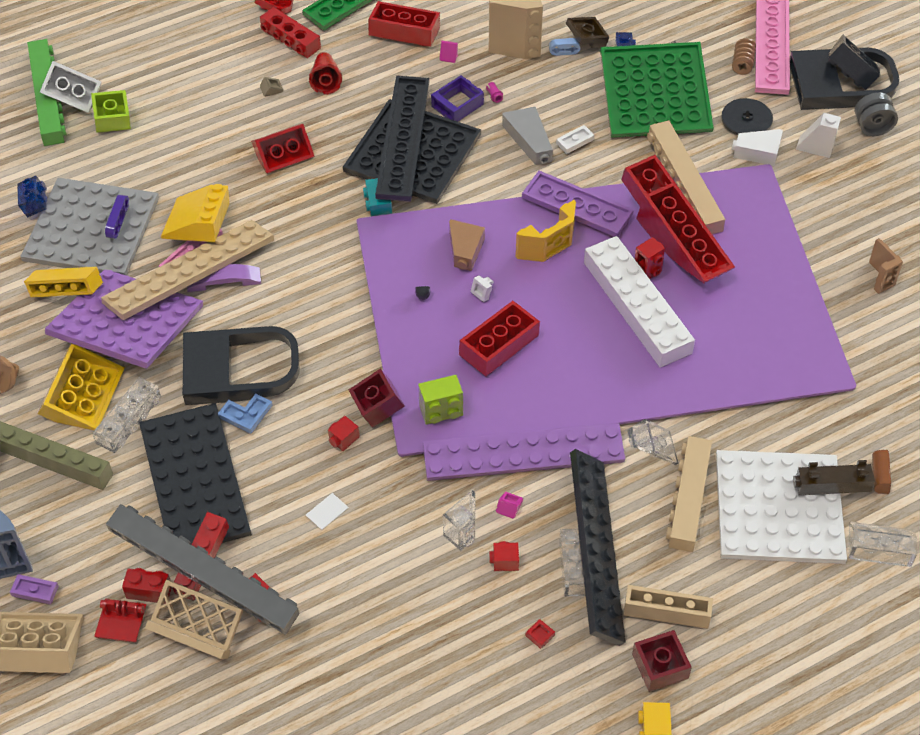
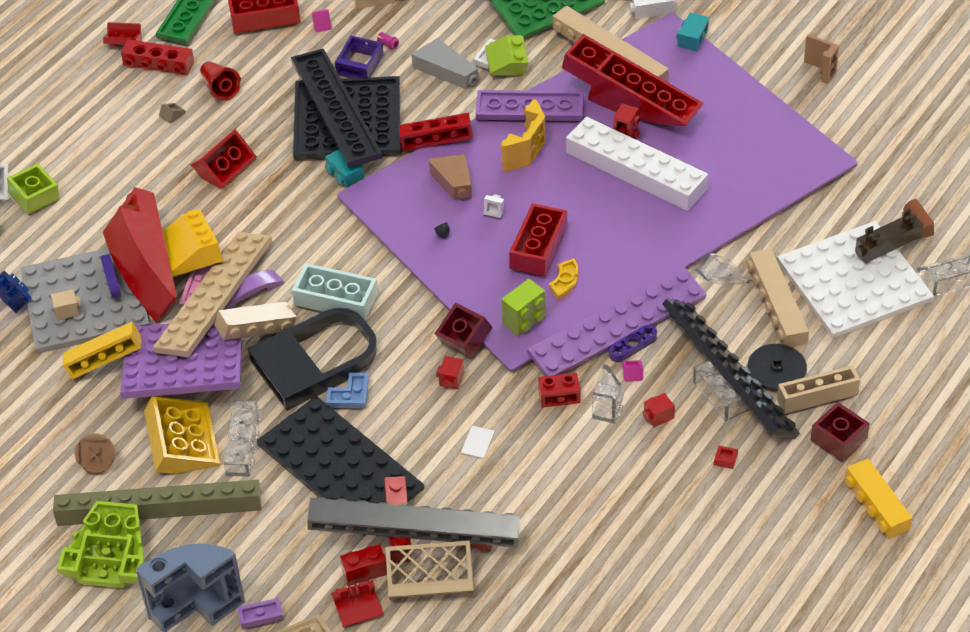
camera: 25 degrees left, 5 degrees down
(64, 227) = (66, 304): none -> tan brick
(152, 202) = (141, 253): none -> red slope
(204, 309) = (254, 320): none -> tan brick
(292, 310) = (329, 288): none -> light aqua brick
(427, 494) = (559, 390): none -> red brick
(477, 195) = (435, 131): none -> red brick
(503, 388) = (565, 280): none -> yellow tile
(520, 484) = (628, 350): none -> dark purple beam
(586, 148) = (507, 56): none -> lime slope
(656, 553) = (765, 358): none -> black piece
(774, 191) = (692, 31): none -> teal brick

